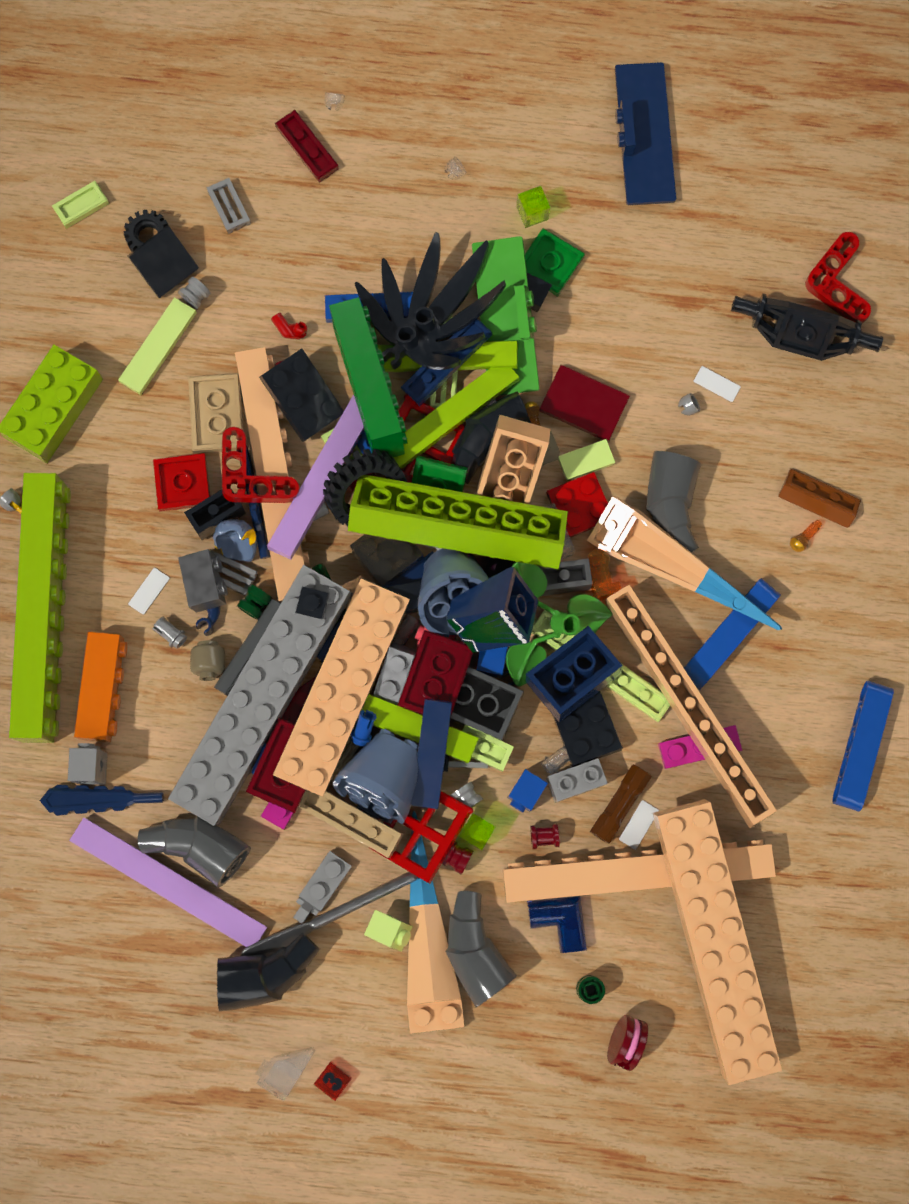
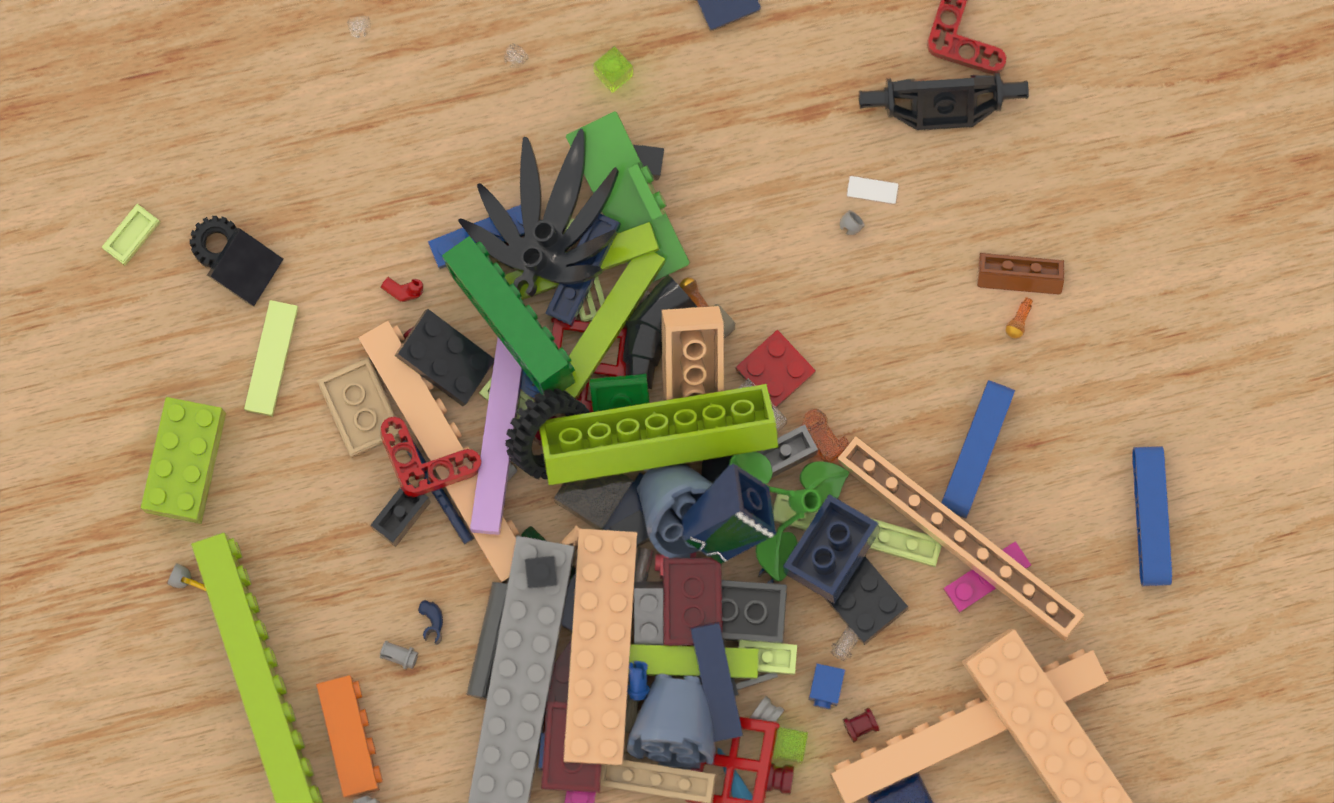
camera: 15 degrees left, 0 degrees up
(148, 591) = (359, 619): white sticker -> none
(181, 481) = (352, 493): red plate -> none
(194, 292) = (289, 287): light grey wheel -> none
(202, 580) = (414, 588): flat silver brick -> none
(207, 660) = (449, 669): dark tan head -> none
(236, 223) = (306, 197): light grey tile -> none
(236, 540) = (432, 534): sand blue hair -> none
(253, 574) = (433, 570): light grey tile -> none
(254, 602) = (475, 591): dark green wheel -> none
(307, 146) = (348, 85): dark red tile -> none
(492, 662) = (743, 566): blue brick -> none
(552, 260) = (653, 119): green tile -> none
(576, 780) = (873, 656): light grey brick -> none
(584, 403) = (741, 260): dark red tile -> none
(586, 460) = (765, 319): yellowish green tile -> none
(620, 804) = (926, 664): reddish brown axle -> none
(638, 825) = (952, 679): white sticker -> none
(641, 542) = (850, 386): light nougat plate -> none
(671, 494) = (865, 330): dark grey piece -> none

